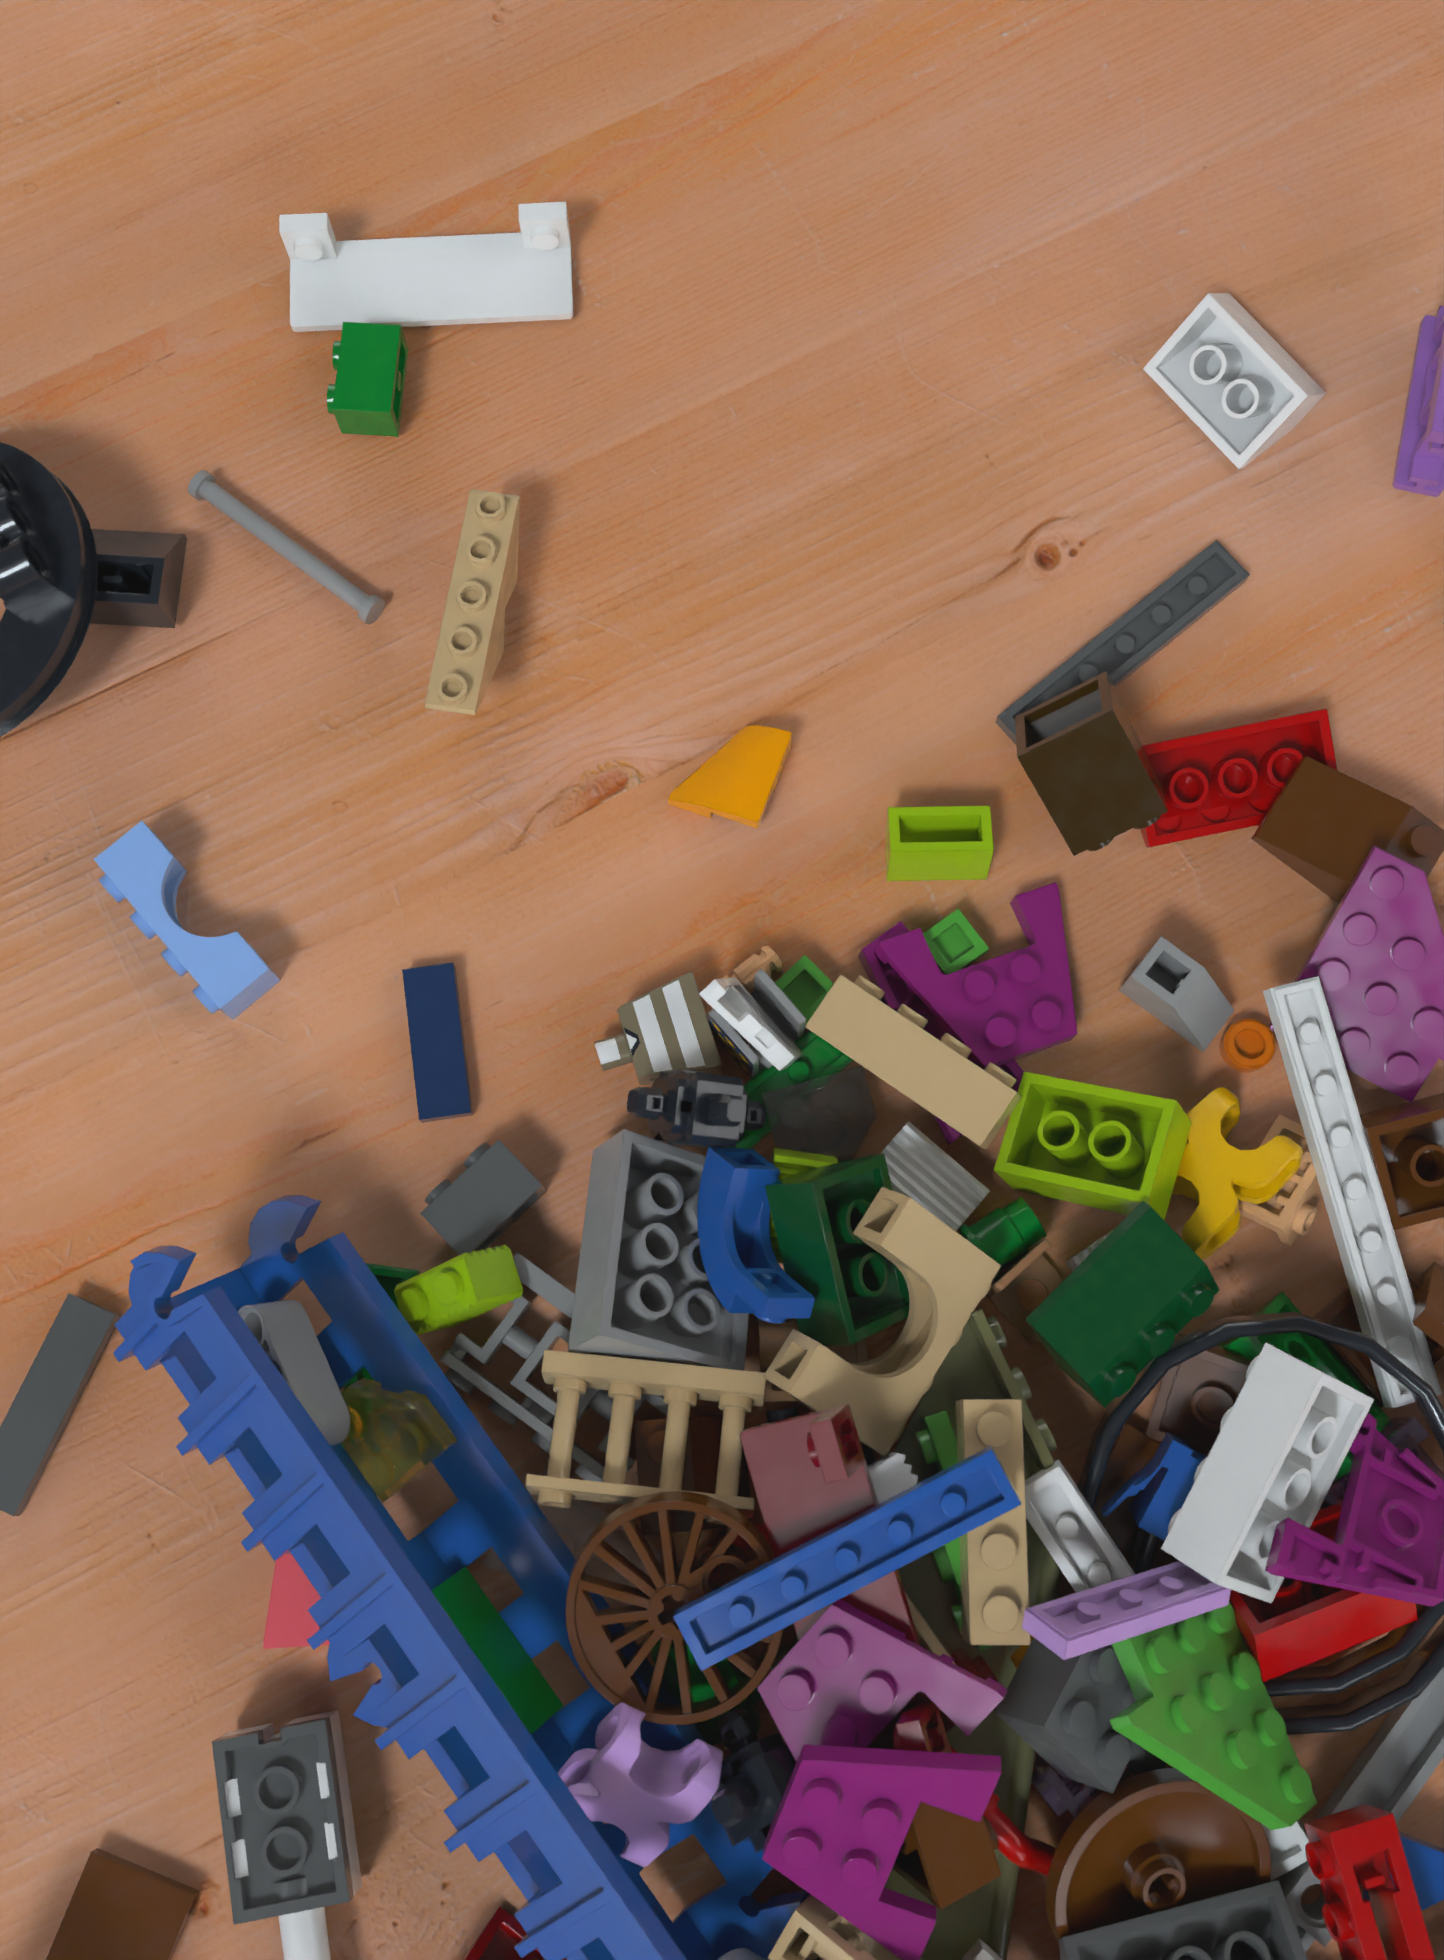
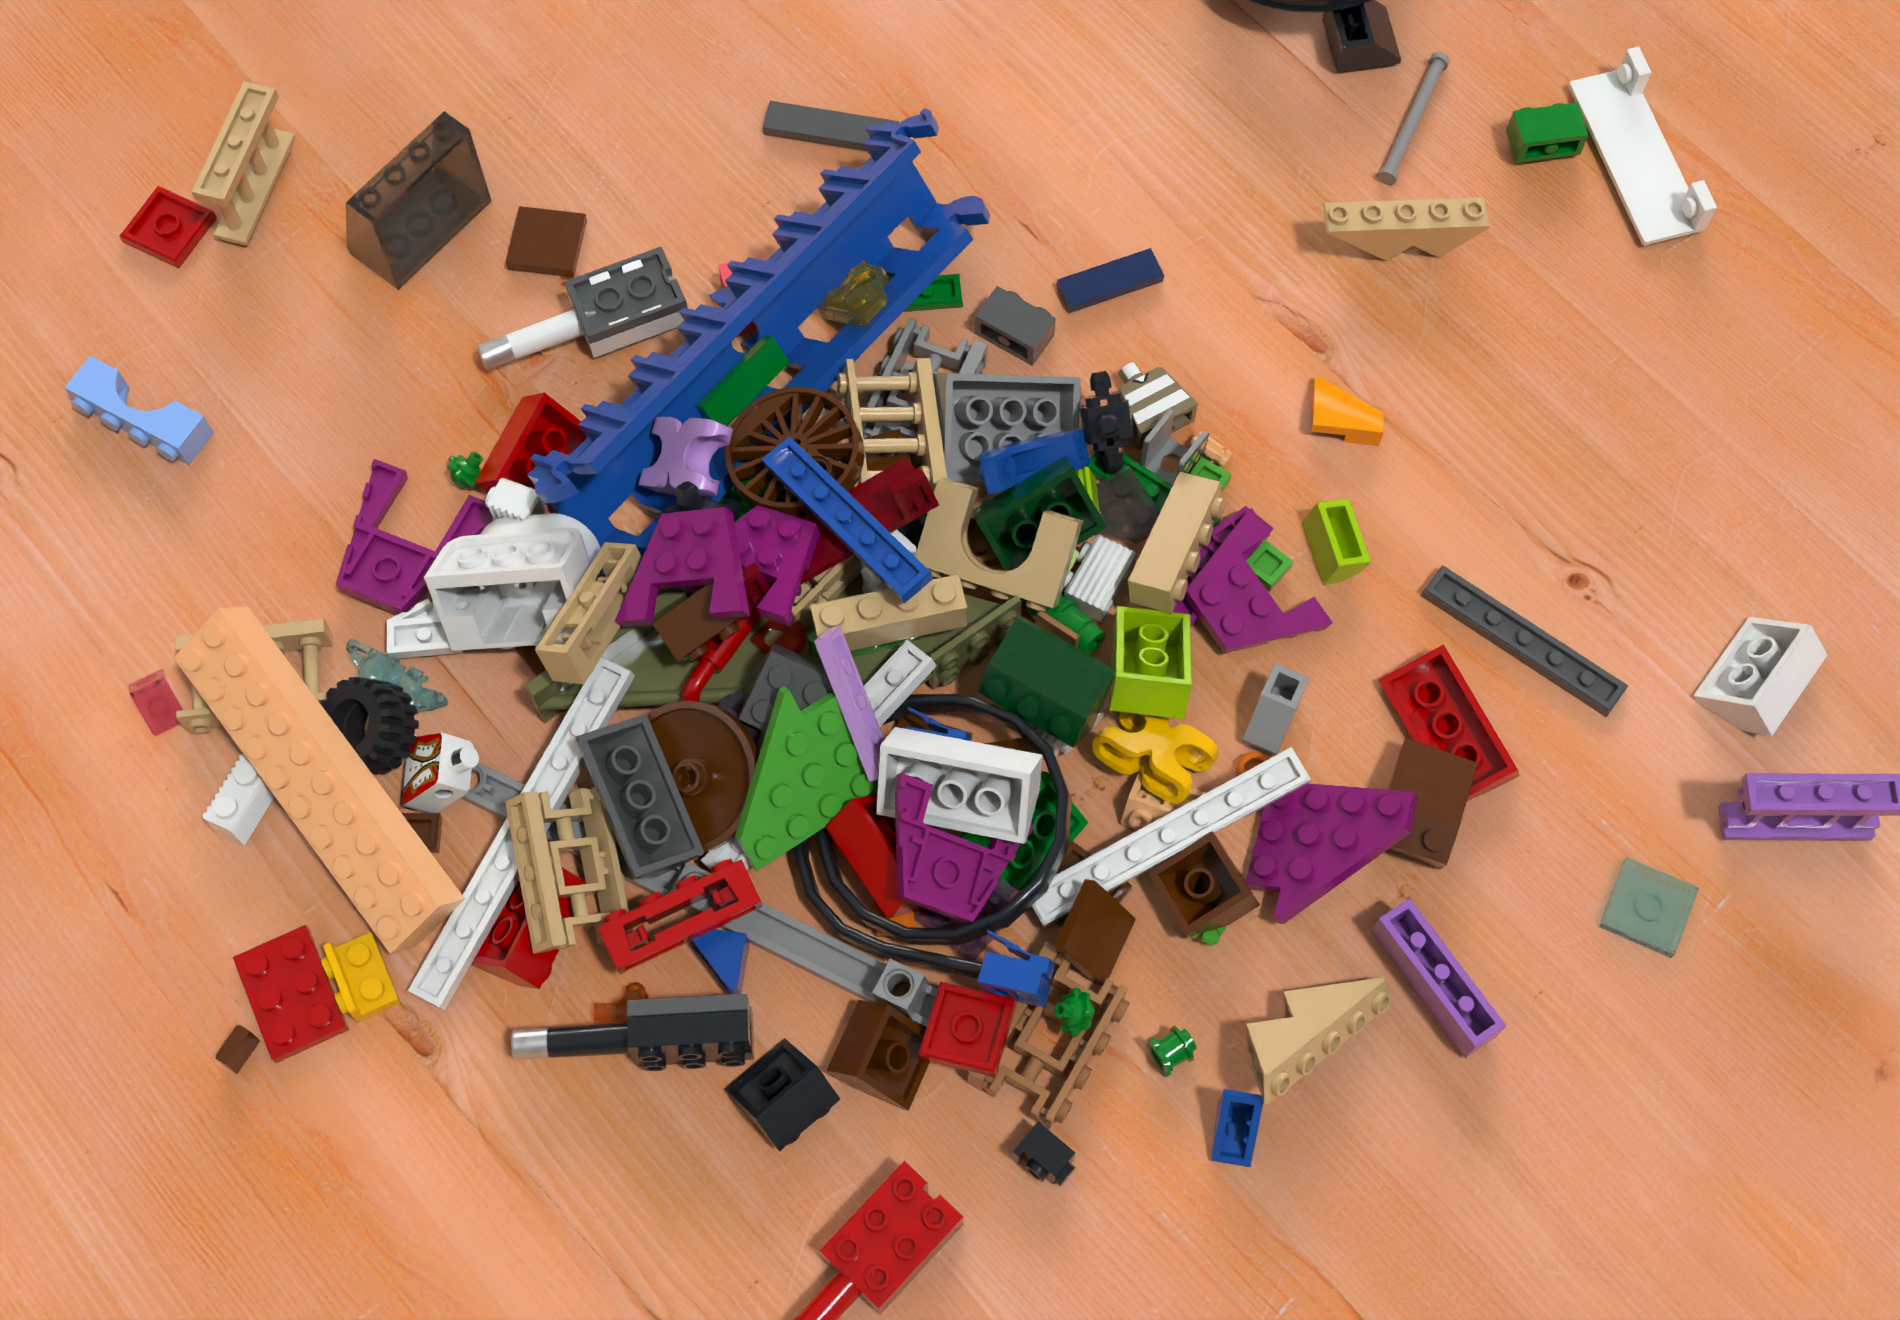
camera: 75 degrees right, 10 degrees down
(149, 877) = (1166, 96): light blue arch -> none
(297, 1354) = (880, 234): light grey beam -> none
(459, 1289) = (954, 316): lime brick -> none
(752, 1022) = (1174, 439): white wing -> none
(1089, 765) = (1418, 614): dark brown slope -> none

